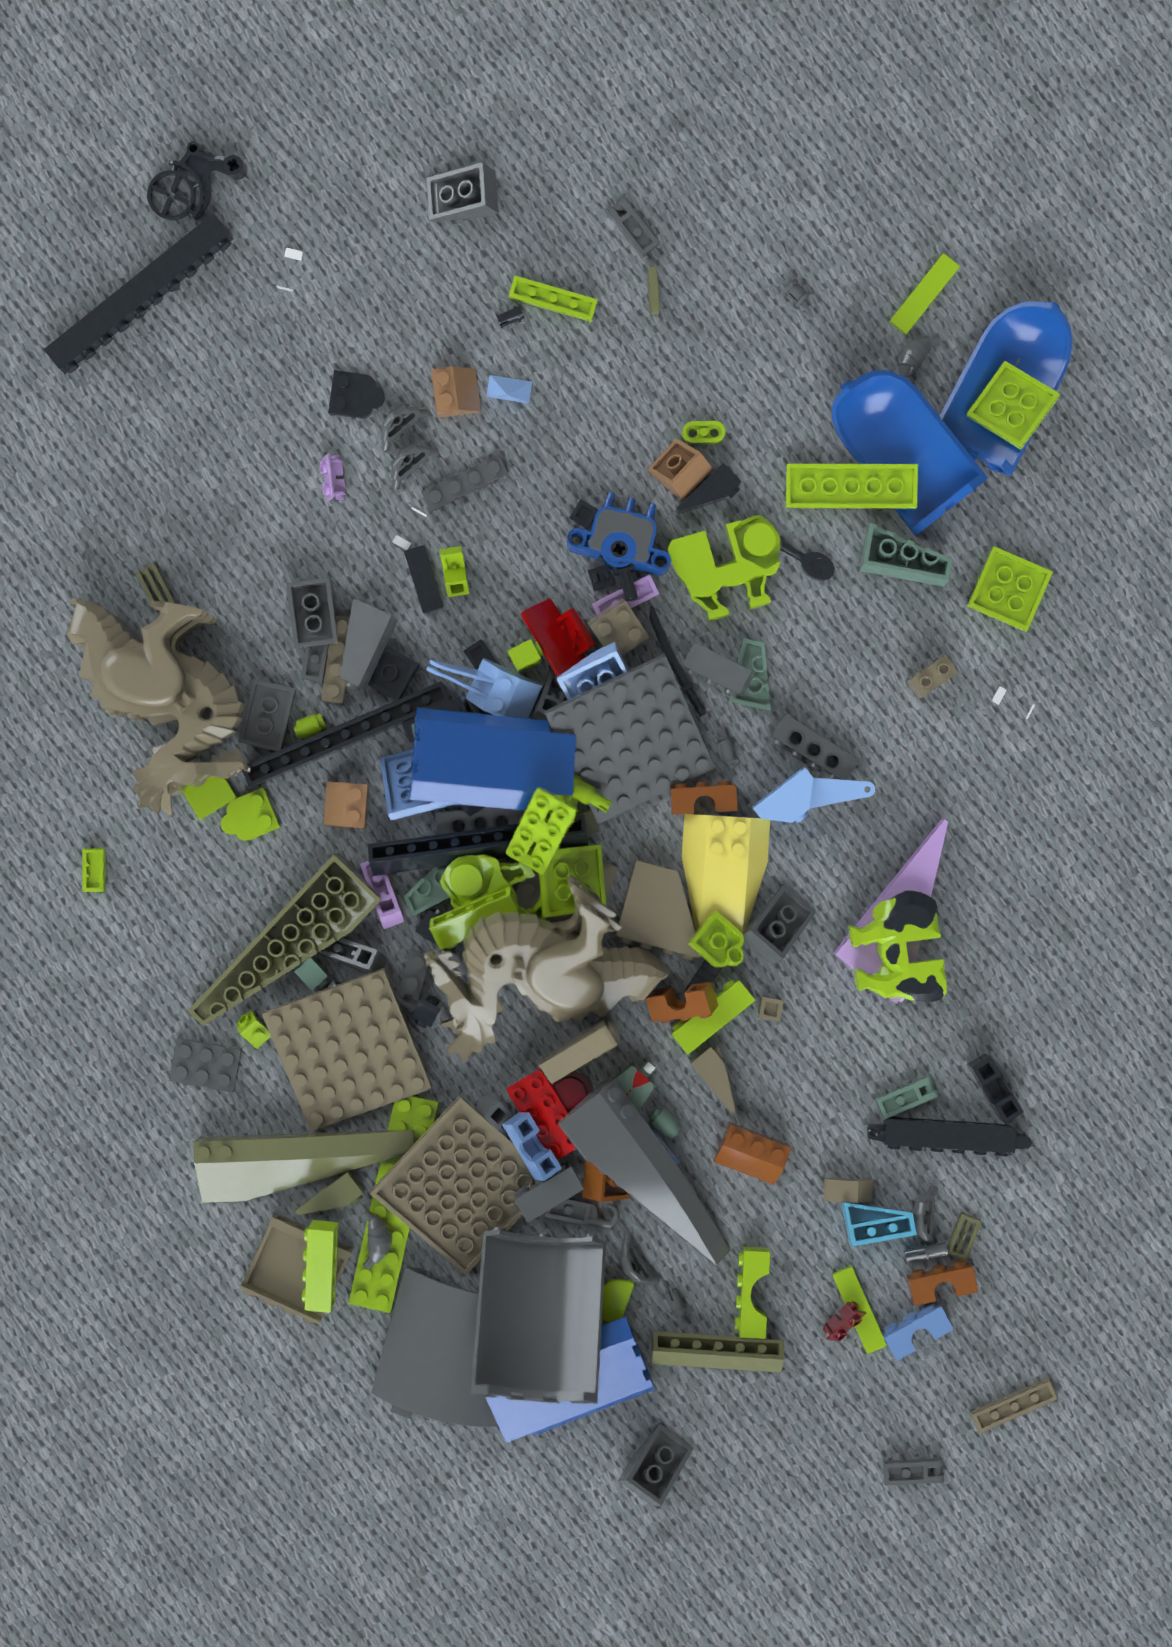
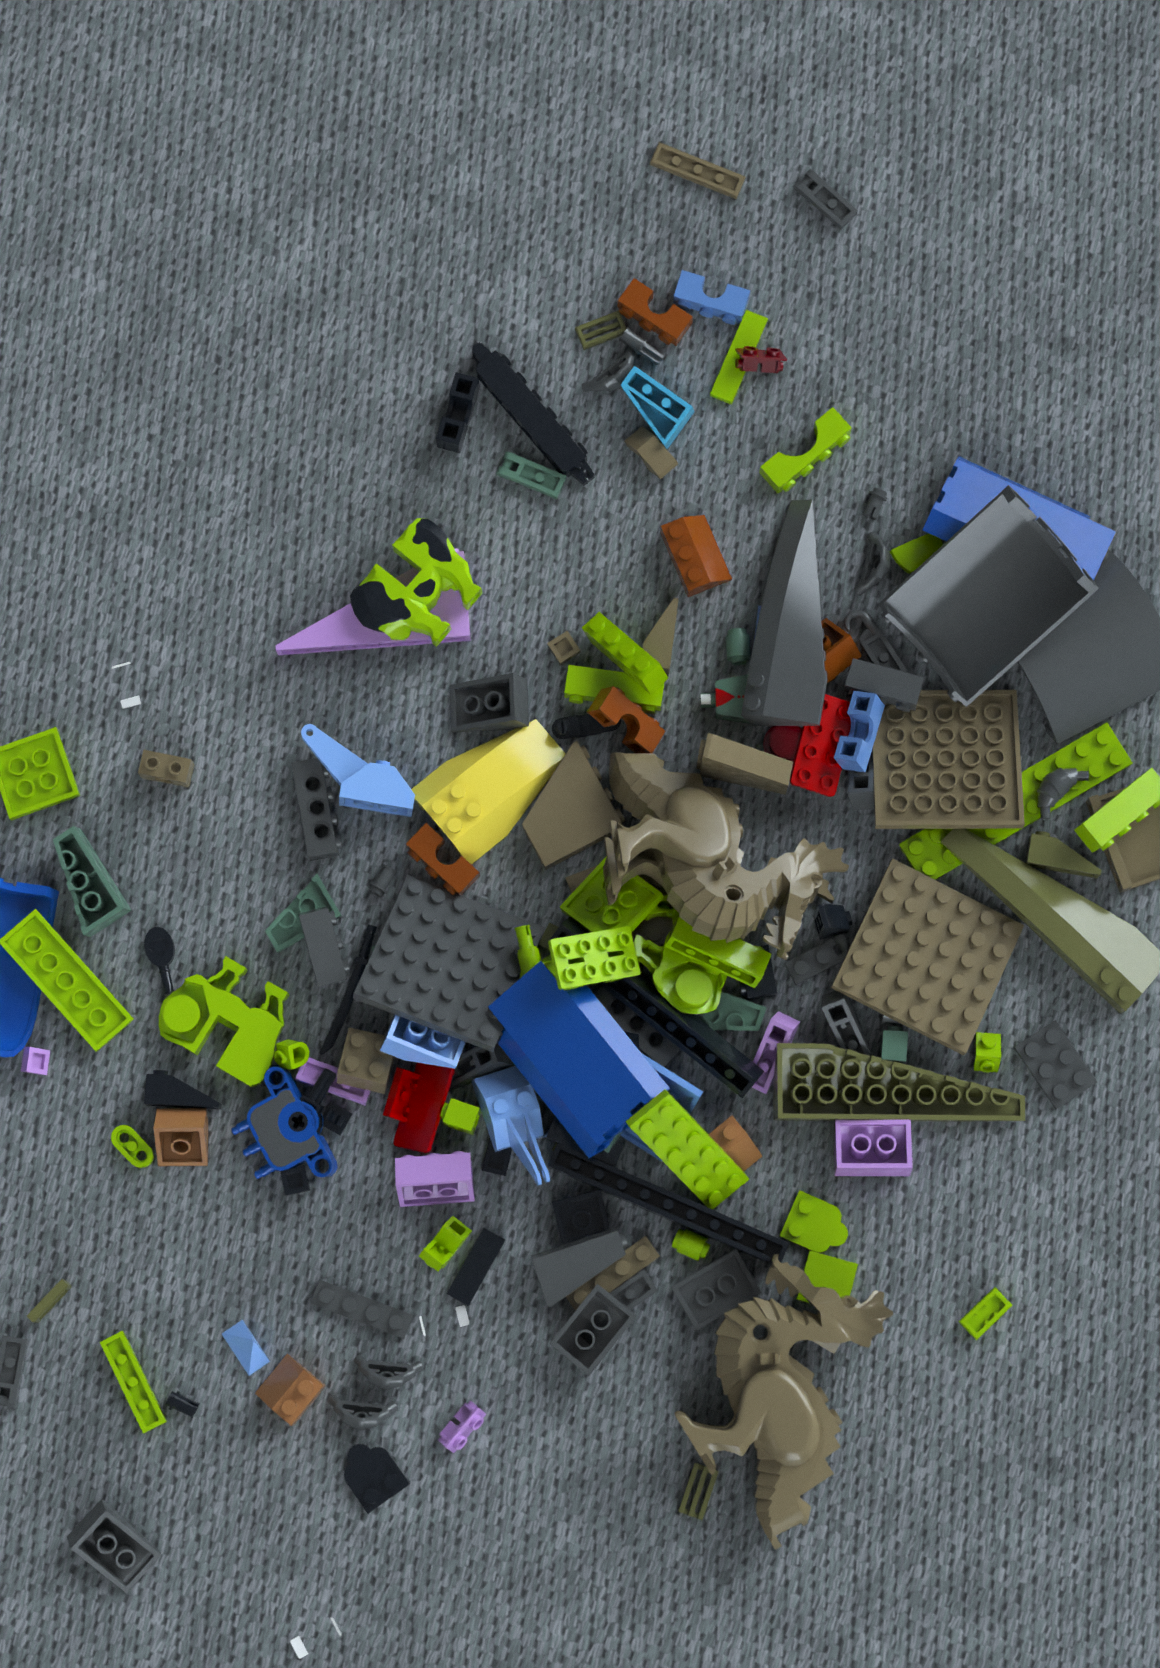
camera: 135 degrees left, 10 degrees down
(260, 898) = (872, 1148): none -> lavender slope
(365, 776) = (687, 1149): none -> lime plate
(502, 603) = (434, 1179): none -> lavender slope
(656, 1466) = (1019, 399): dark grey slope -> none
(667, 585) = (291, 1054): none -> lime plate
(717, 1352) = (880, 435): olive brick -> none
(718, 941) = (548, 737): lime plate -> none
(727, 1044) = (625, 653): none -> lime brick
(817, 420) = (35, 1060): none -> lavender plate

